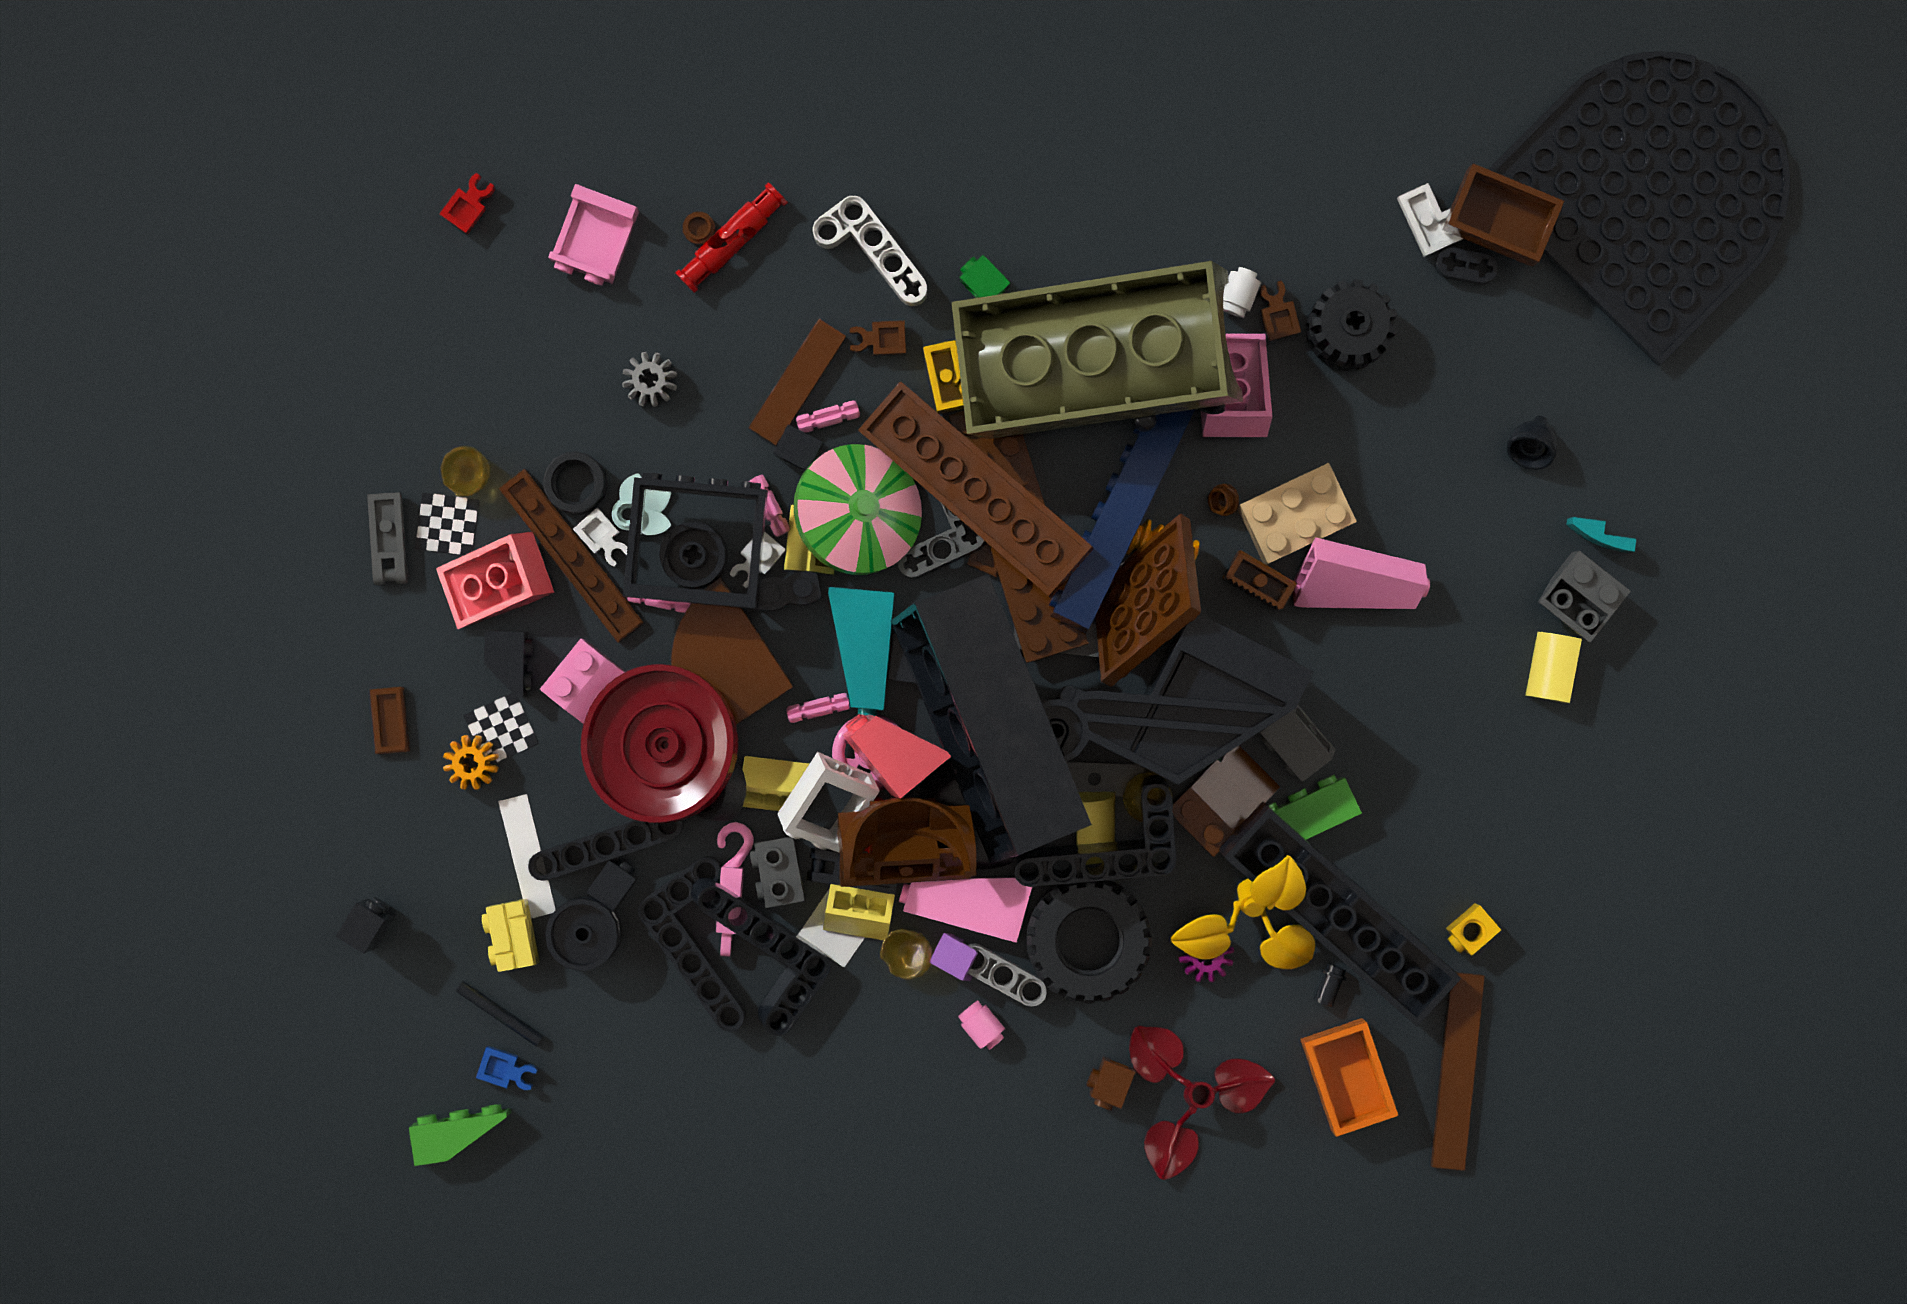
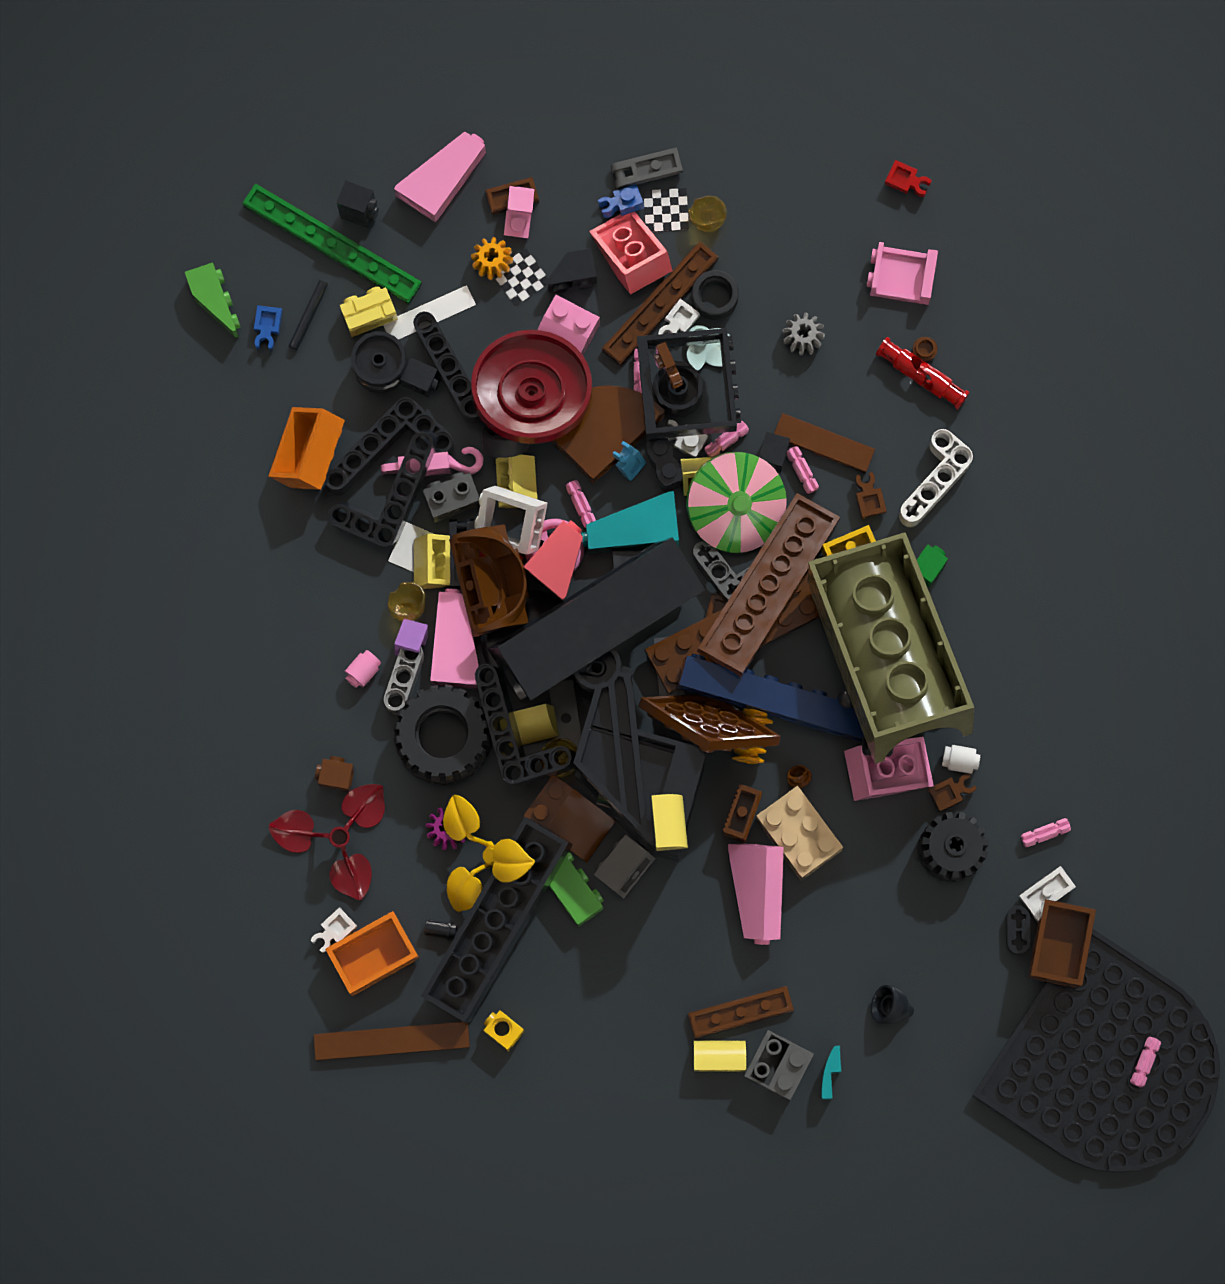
camera: 85 degrees right, 10 degrees down
(349, 809) = (441, 177): none -> bright pink slope
(408, 966) = (332, 243): none -> green tile
(415, 715) = (519, 212): none -> bright pink slope
(425, 573) = (624, 200): none -> blue plate
(664, 566) = (664, 360): none -> reddish brown plate
(682, 1047) = (306, 448): none -> orange piece
(776, 635) = (629, 461): none -> dark azure plate
(1281, 677) = (669, 822): none -> light yellow brick
(1304, 1116) = (336, 927): none -> white plate
(1351, 205) = (1045, 832): none -> bright pink axle
(1502, 630) = (740, 1012): none -> reddish brown tile
(1663, 143) = (1145, 1061): none -> bright pink axle

